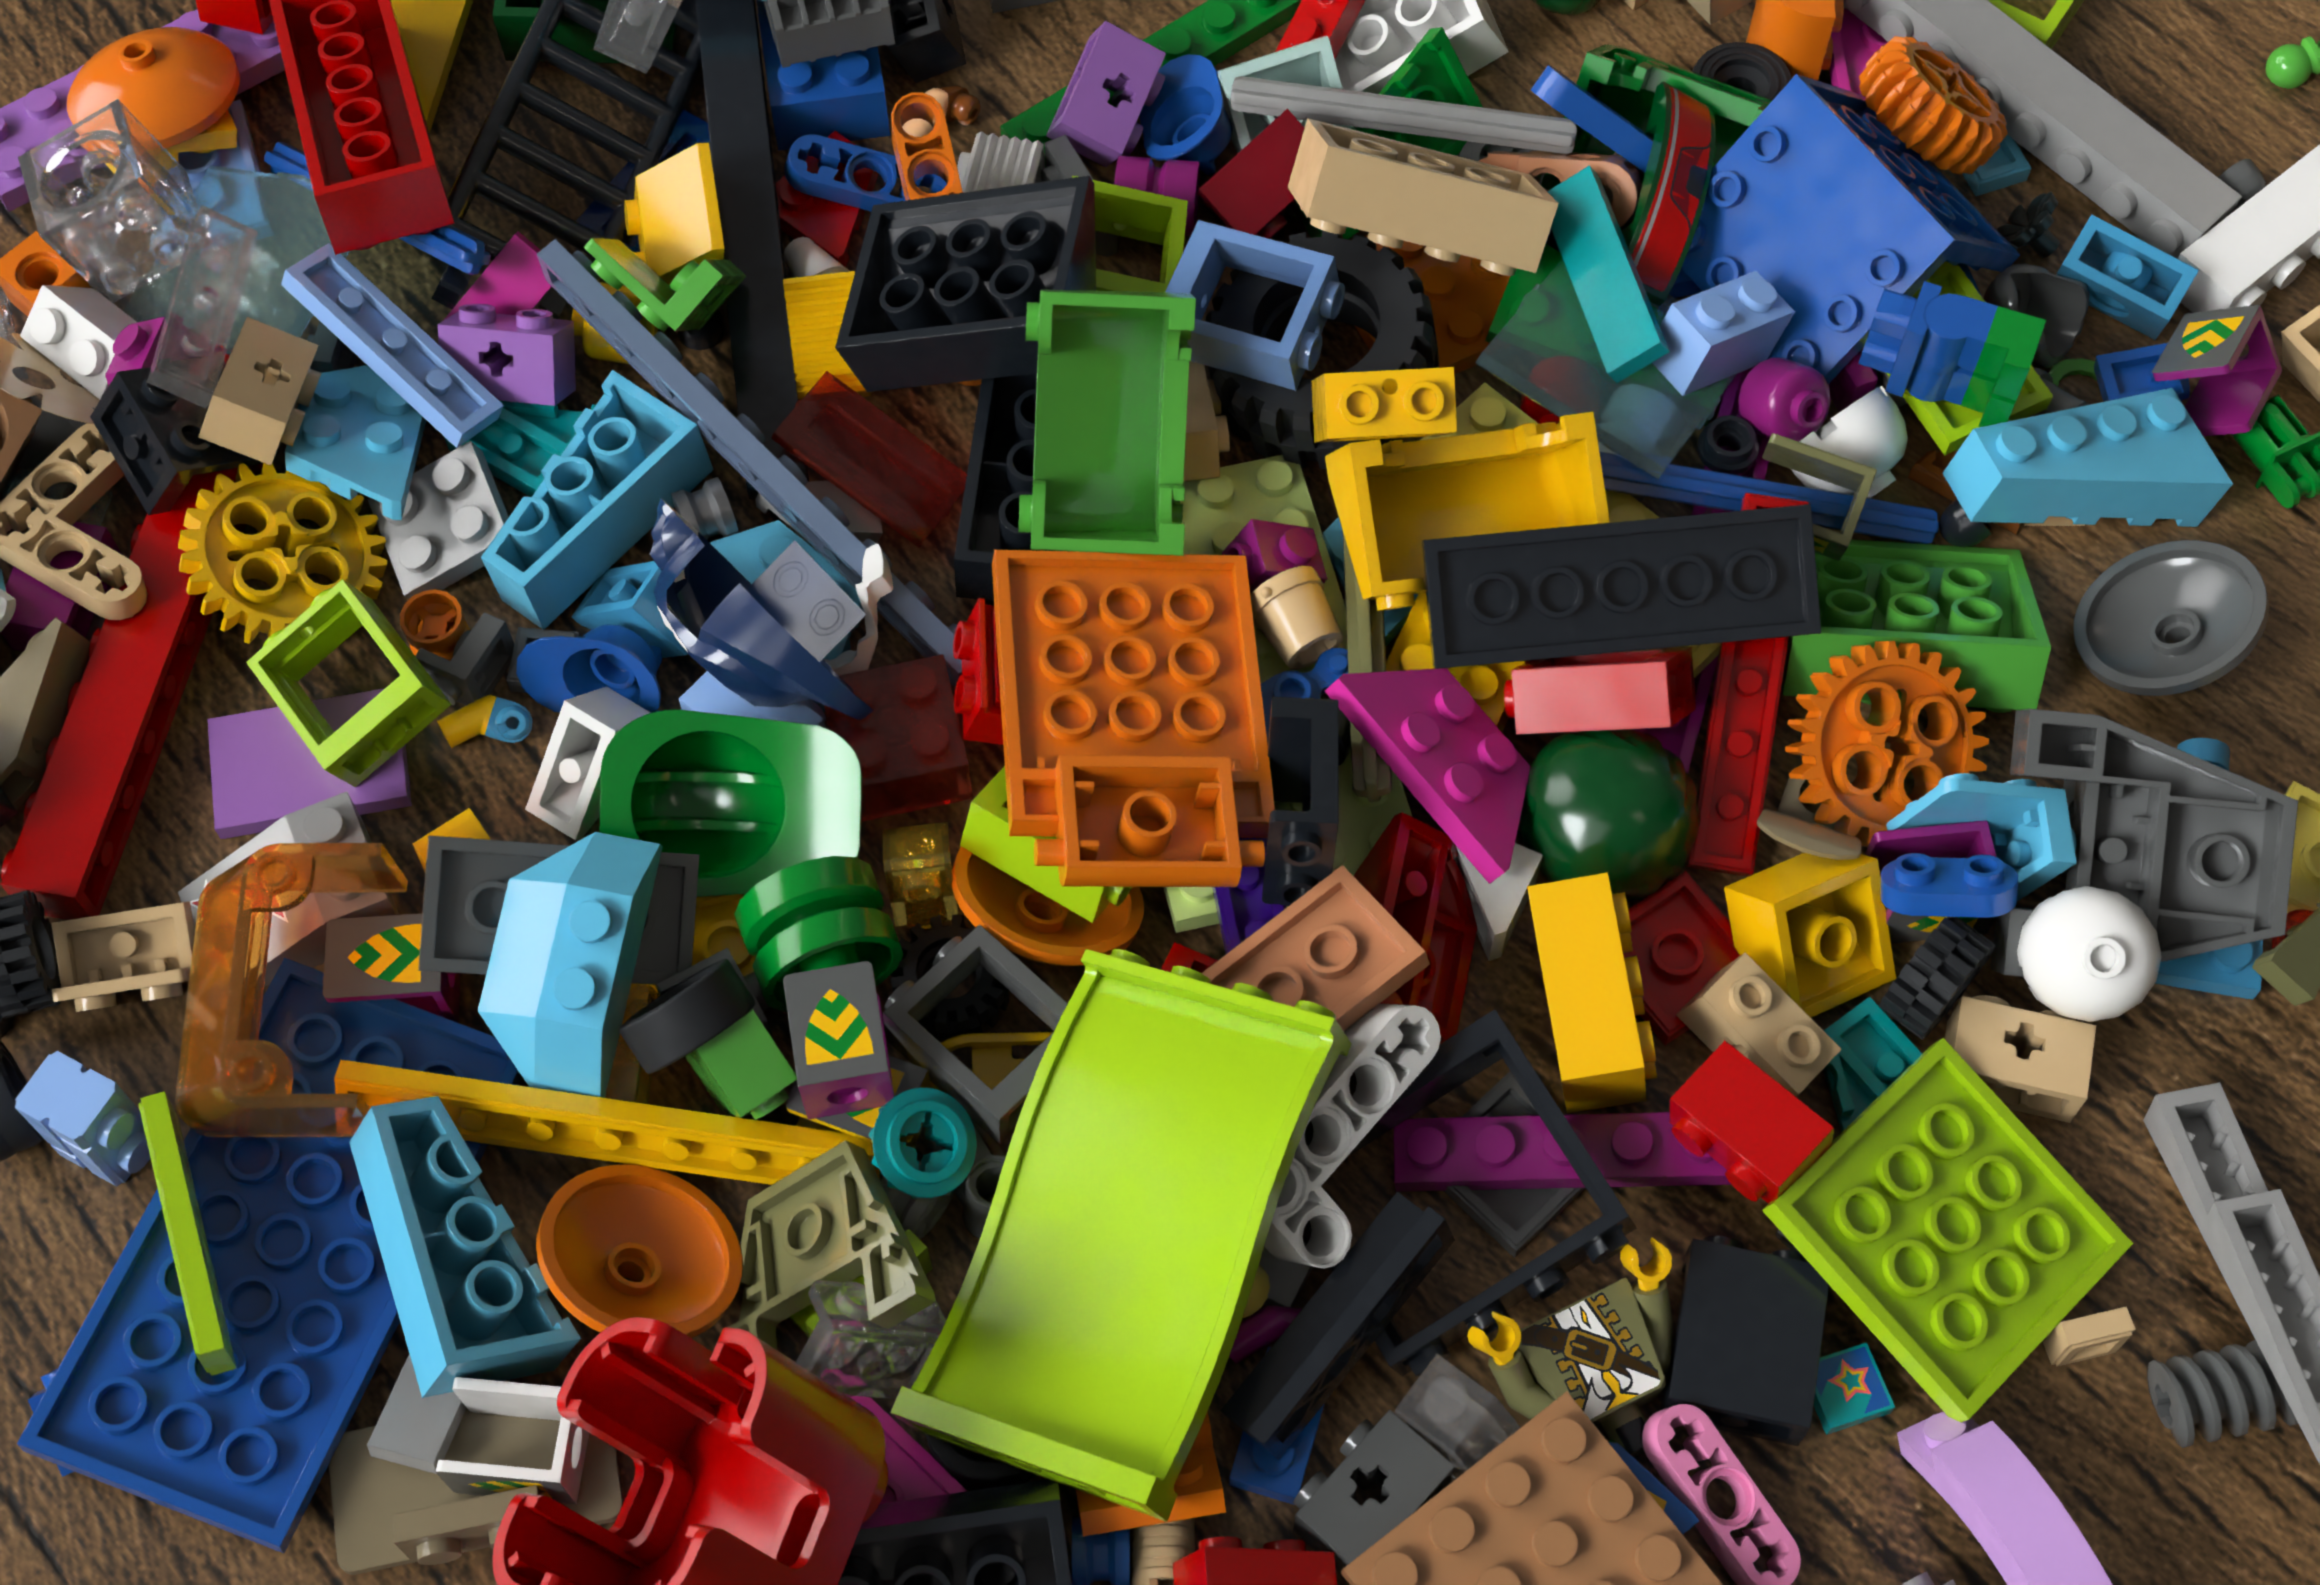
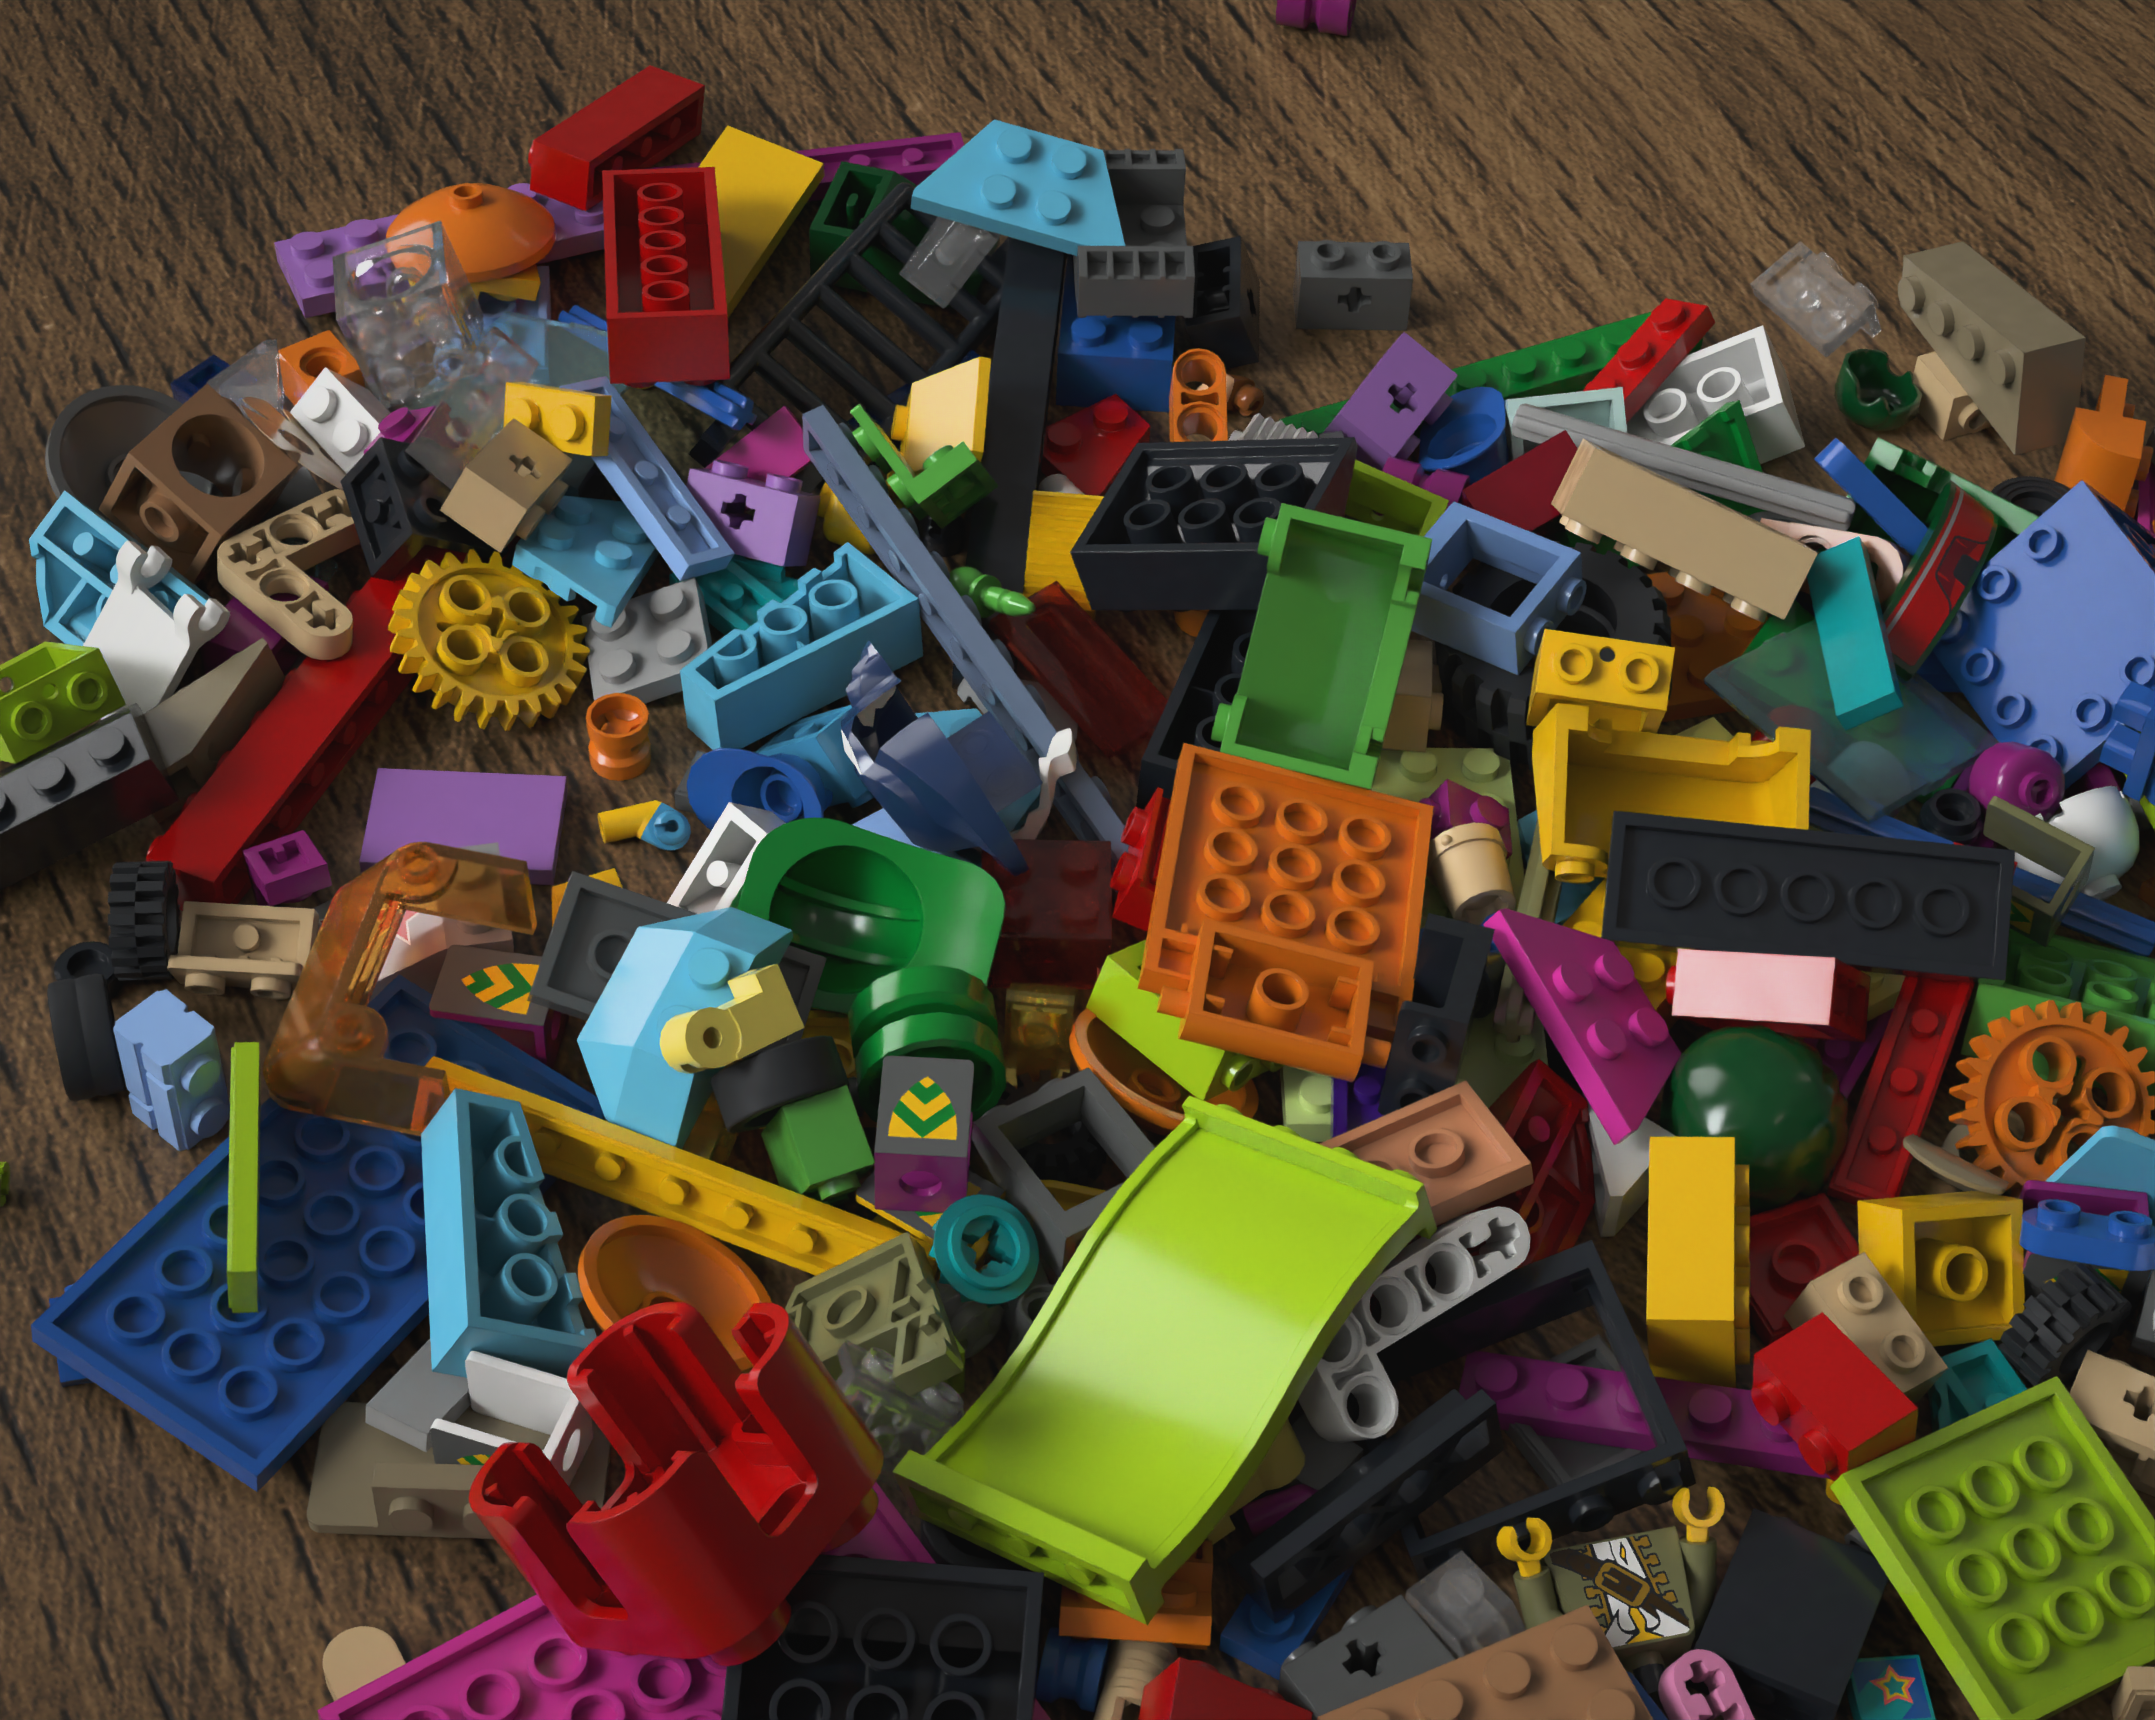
camera: 10 degrees right, 15 degrees down
(144, 863) = (286, 870): none -> magenta bracket
(293, 302) = (563, 417): none -> yellow plate
(380, 725) = (543, 794): lime window -> none
(476, 664) = (646, 773): dark grey bracket -> none
(630, 983) = (720, 1035): none -> light yellow leg
(707, 509) = (915, 683): flat silver wheel -> none
(762, 405) = (989, 594): none -> bright green bar
(847, 192) = (1105, 405): blue beam -> none
(1721, 332) = (1961, 706): light blue brick -> none

